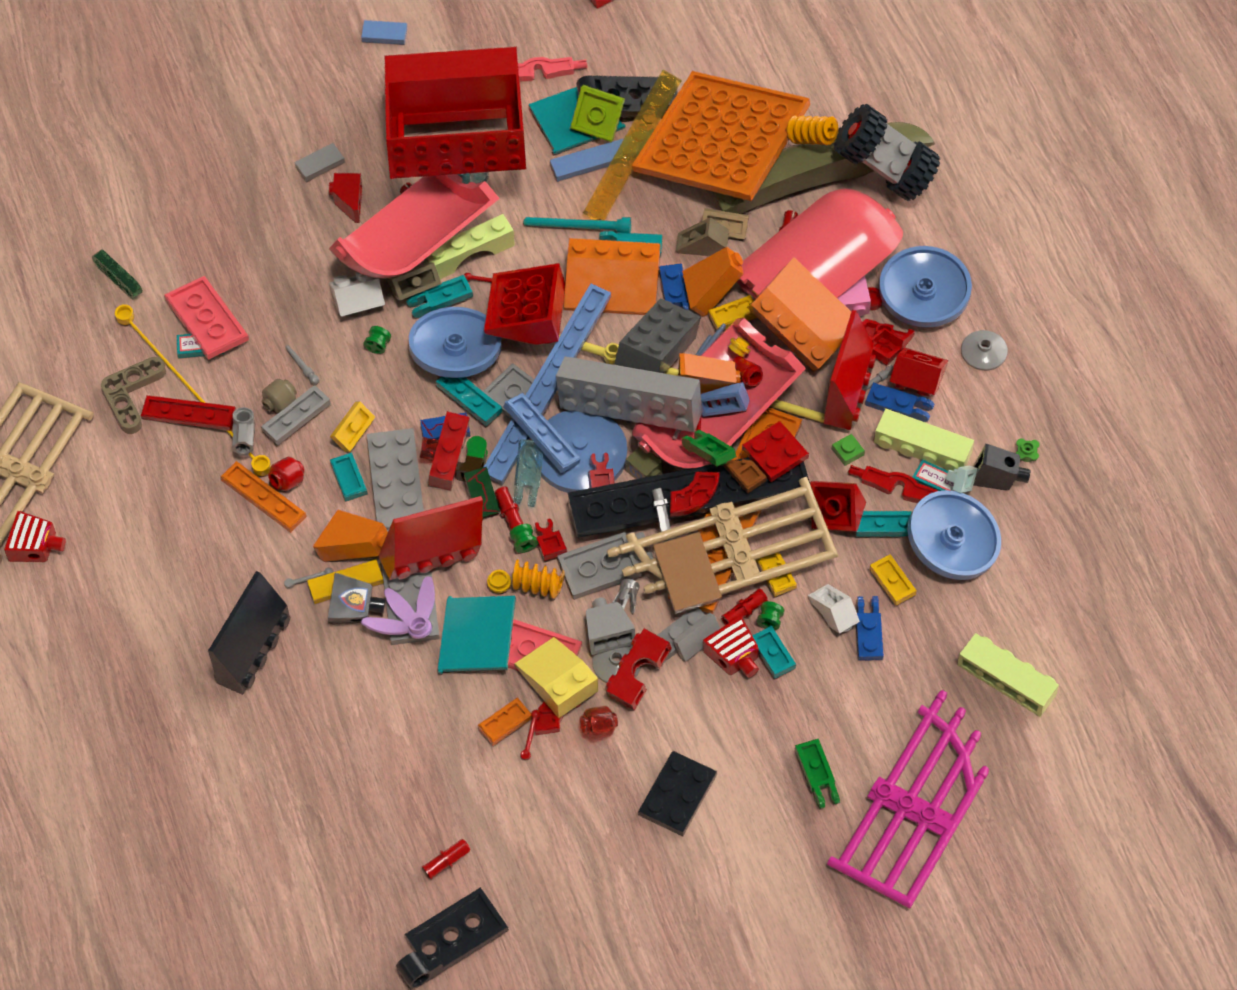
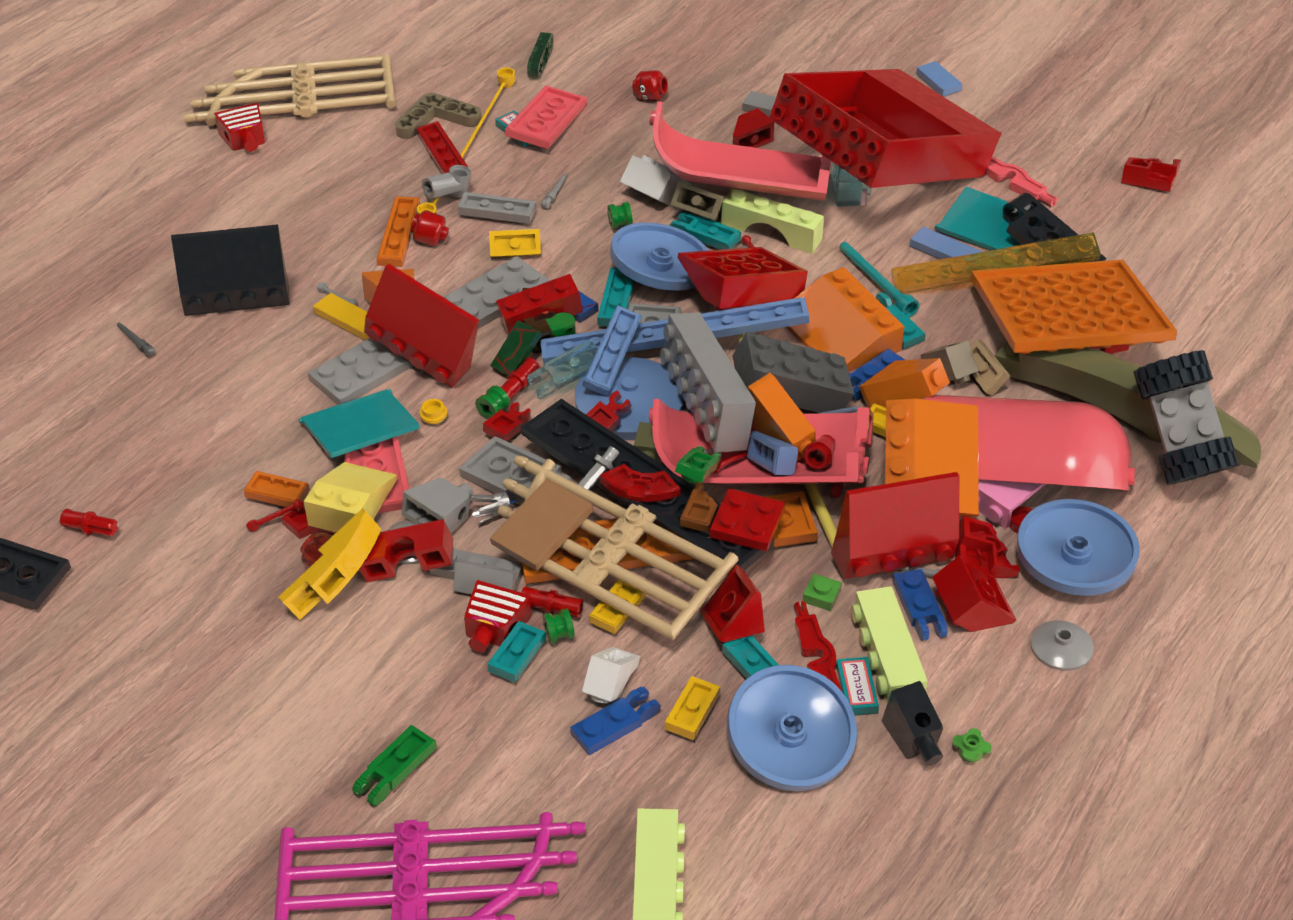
camera: 55 degrees right, 15 degrees down
(230, 224) = (650, 85): none -> red head
(259, 739) = (141, 344): none -> dark grey piece
(278, 395) = (505, 185): dark tan head -> none
(348, 476) = (464, 268): teal tile -> none
(352, 600) = (325, 324): torso -> none
(413, 623) = (331, 374): lavender plant -> none
(537, 579) = (453, 432): light orange piece -> none
(597, 113) = (999, 220): lime tile -> none
(625, 708) = (335, 568): none -> yellow slope
(677, 793) = (287, 661): black plate -> none
(739, 346) = (842, 430): yellow plate -> none
(812, 130) = (1139, 345): light orange piece -> none
(962, 478) = (868, 697): light aqua tile -> none

